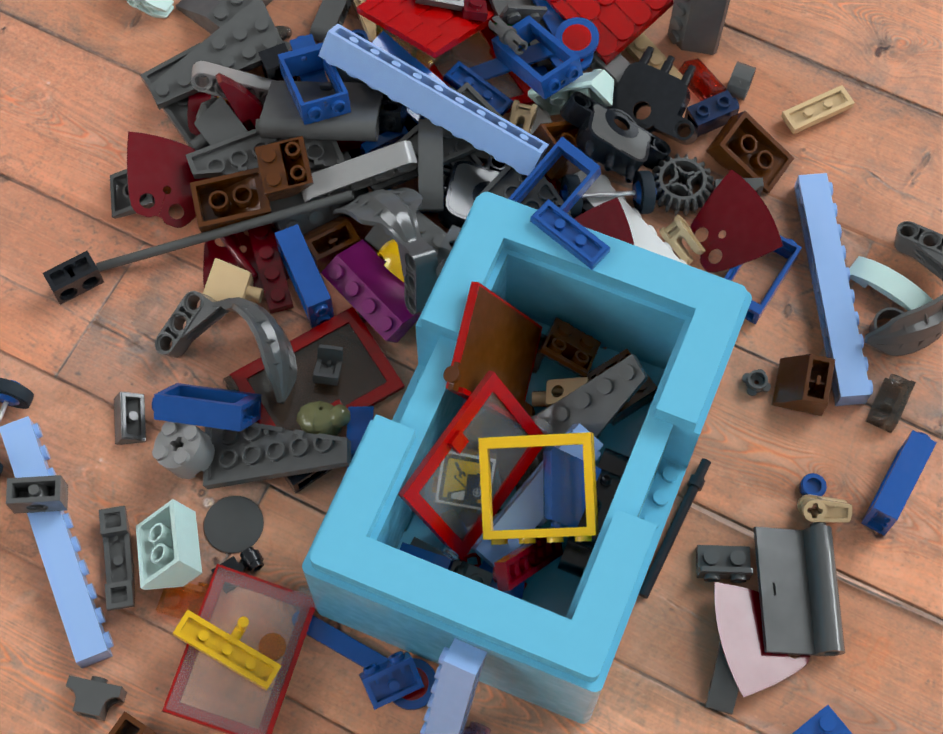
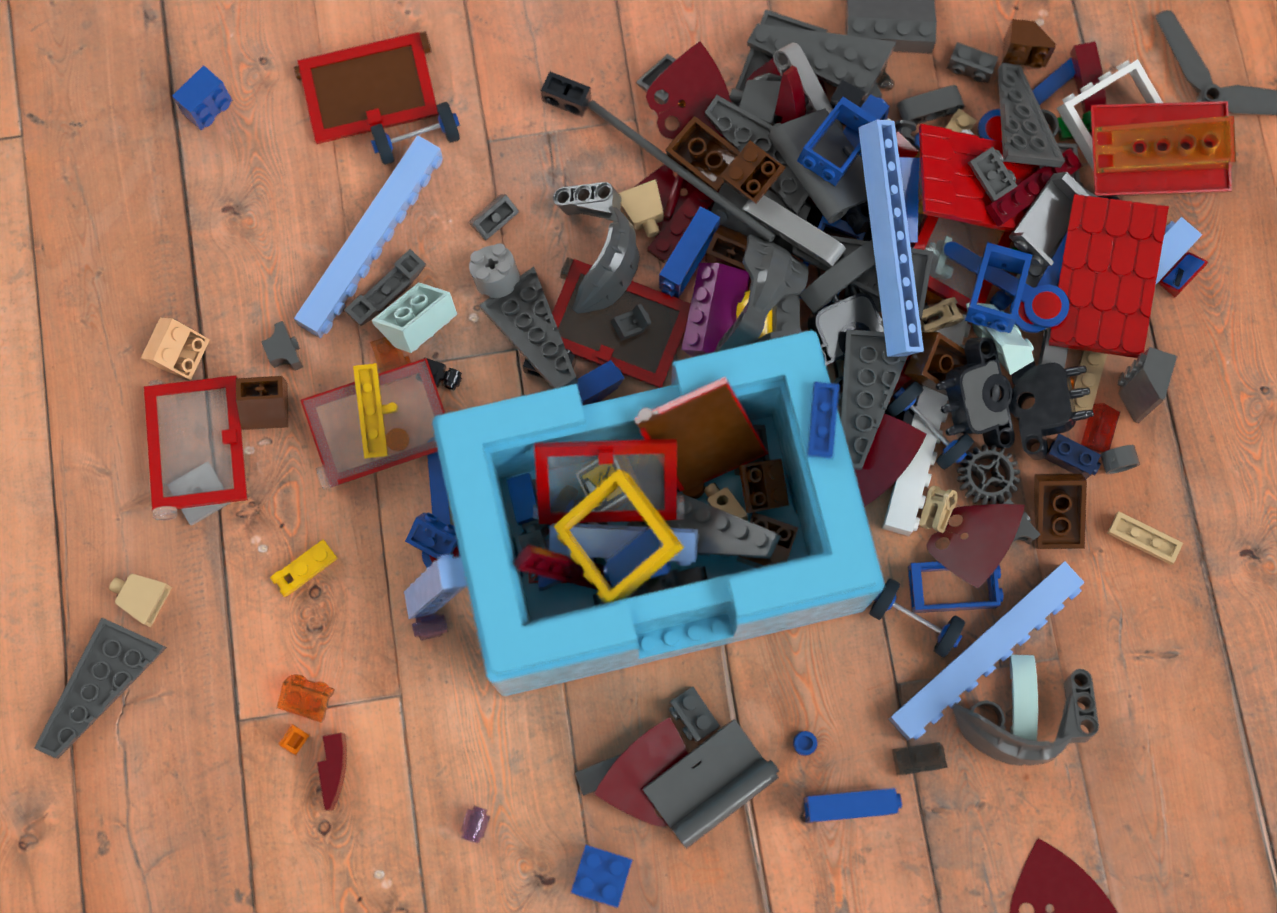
camera: 55 degrees right, 10 degrees up
(37, 494) = (384, 200): dark grey brick -> none
(207, 407) = (543, 285): blue window -> none
(233, 524) = (470, 347): dark grey sticker -> none
(323, 418) = (584, 354): olive piece -> none
(460, 74) = (942, 266): blue tile -> none
(507, 35) = (997, 252): dark grey pin -> none
(575, 156) = (926, 383): blue window -> none
(694, 485) = (741, 653): black bar -> none
(756, 375) = (865, 641): dark grey plate -> none
(799, 305) = (948, 636): none -> black axle
(804, 383) = (883, 681): reddish brown slope -> none
(826, 509) = (790, 764): tan piece -> none

